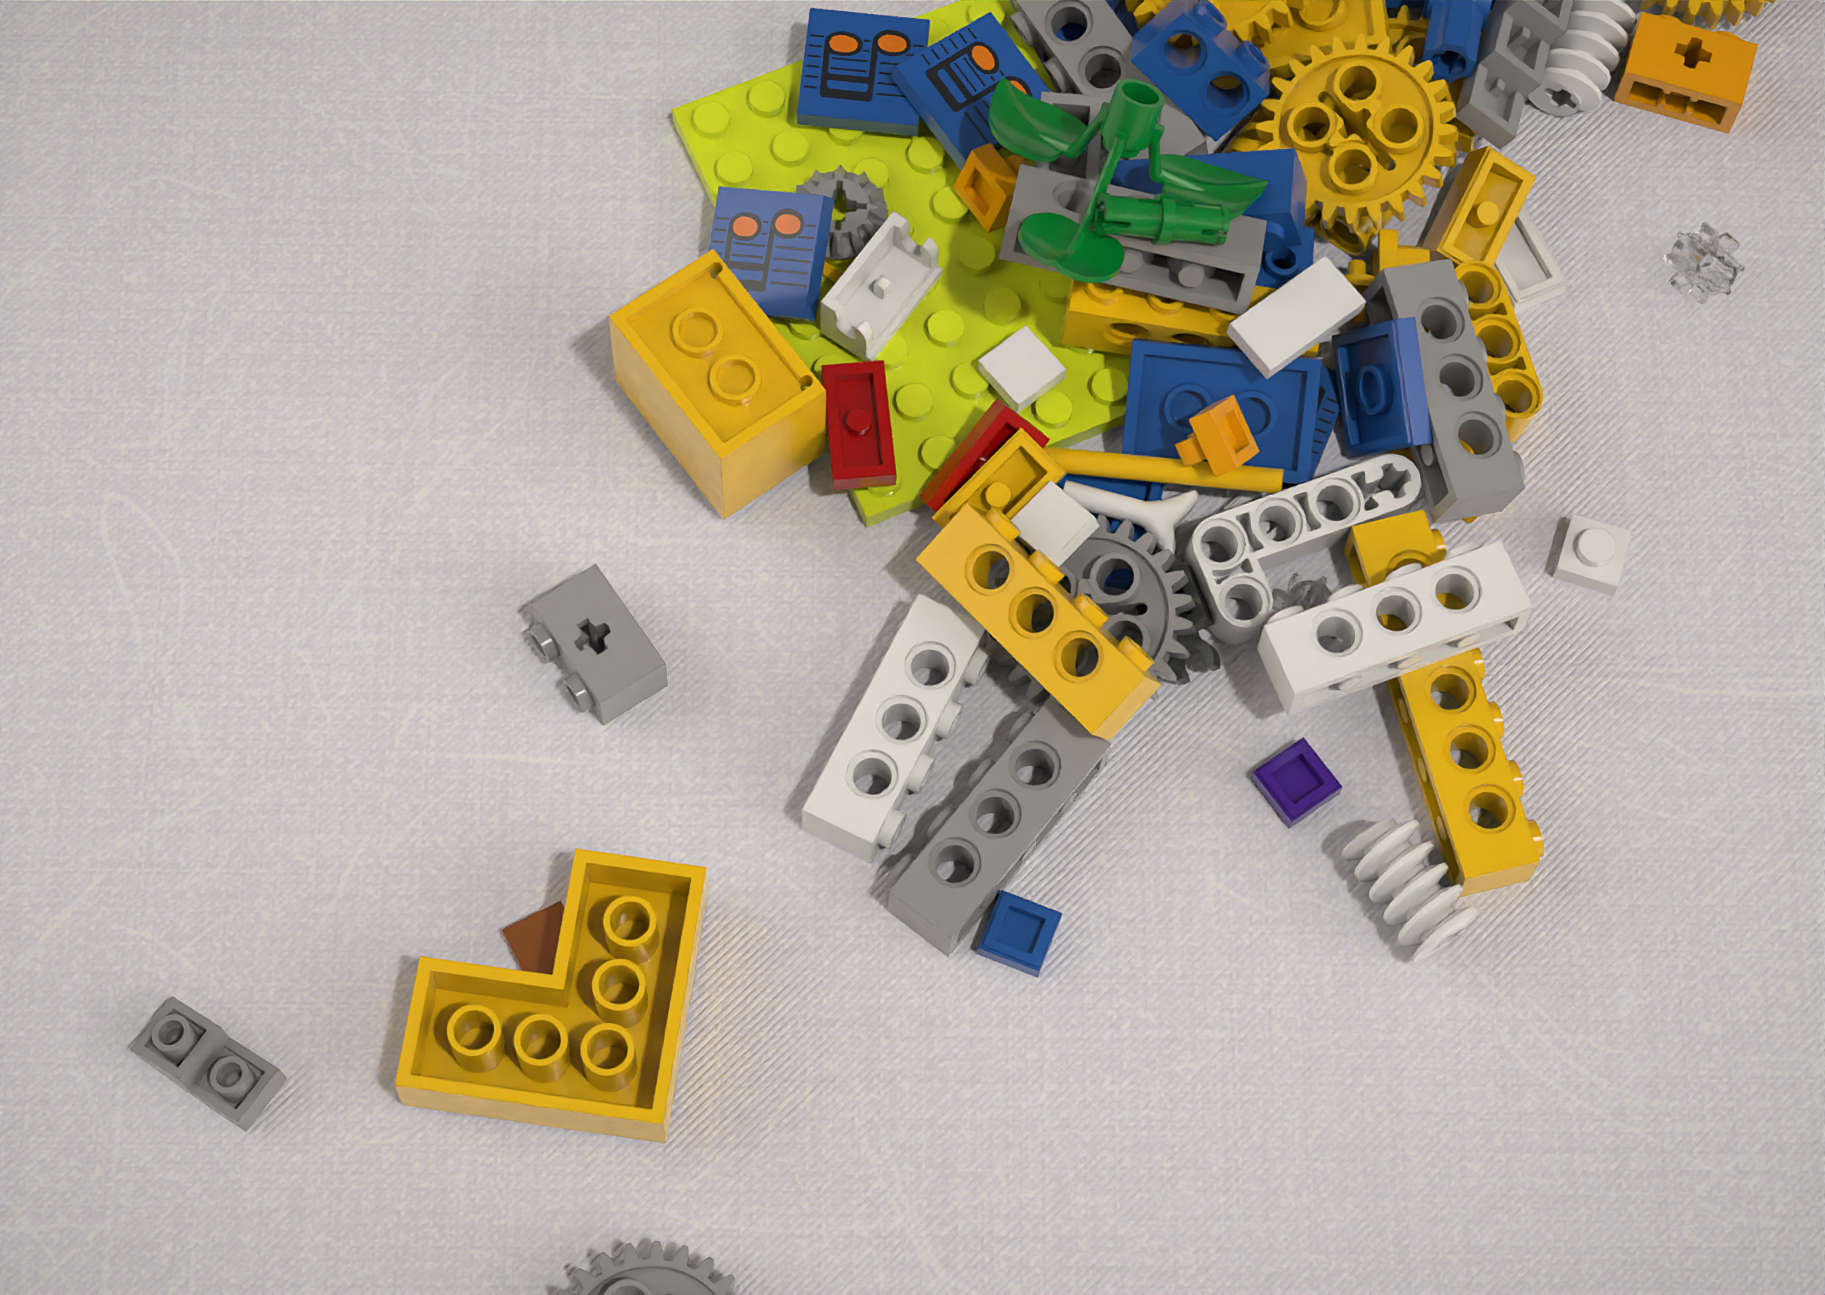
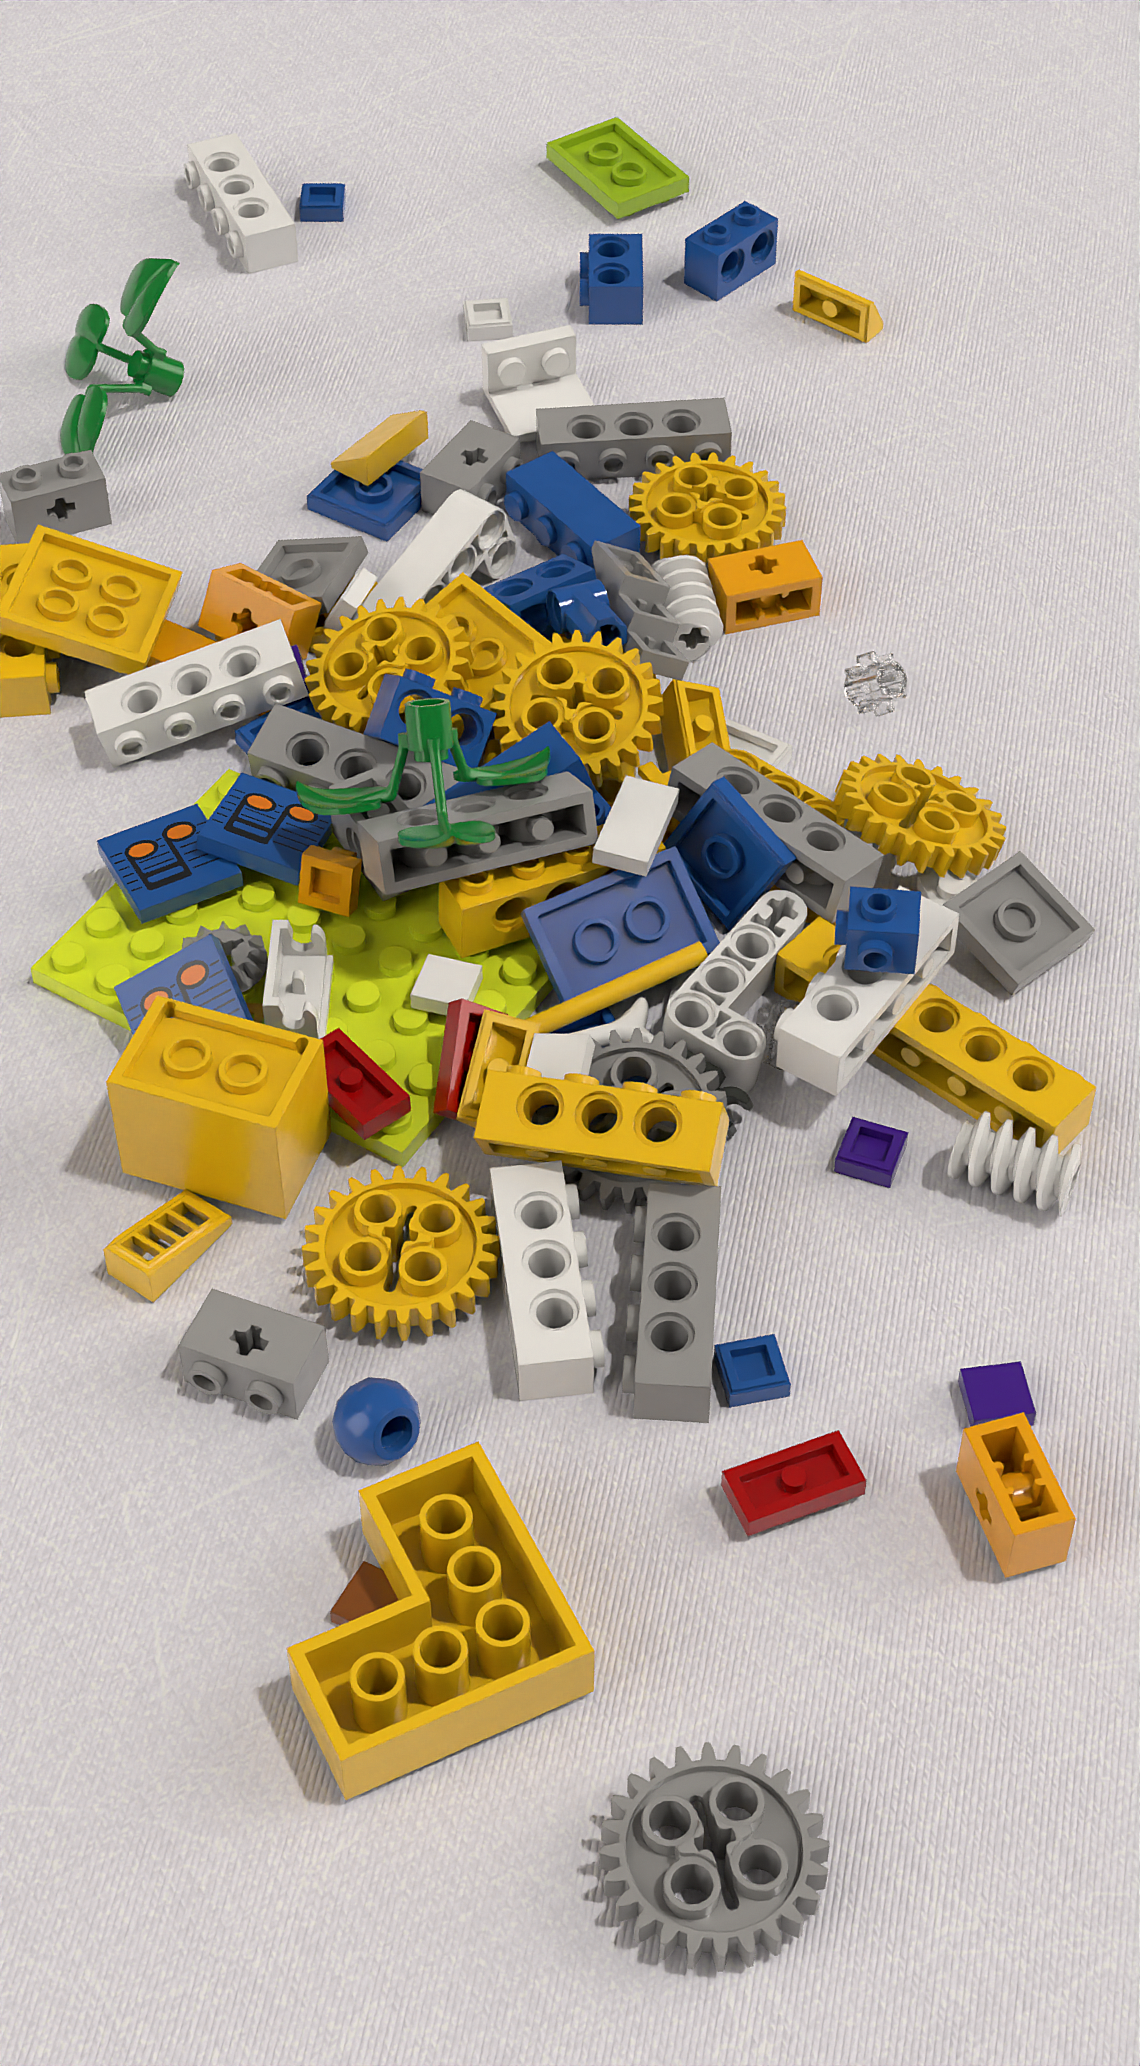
camera: 30 degrees left, 20 degrees down
(209, 1063) = (144, 1876): light grey slope -> none
(594, 505) = (156, 1275): none -> yellow slope
(653, 780) = (376, 1416): none -> blue piece
(753, 586) = (448, 1246): none -> yellow gear
(968, 1067) = (793, 1482): none -> red plate
(1140, 1210) = (1015, 1495): none -> light orange brick
(1161, 219) = (498, 788): green pin -> none
(1213, 1101) = (995, 1392): none -> dark purple tile
(1219, 437) = (638, 939): light orange tile -> none
(1421, 590) = (880, 930): none -> blue brick
(1621, 628) = (1017, 922): none -> light grey plate
(1629, 492) = (919, 815): none -> yellow gear

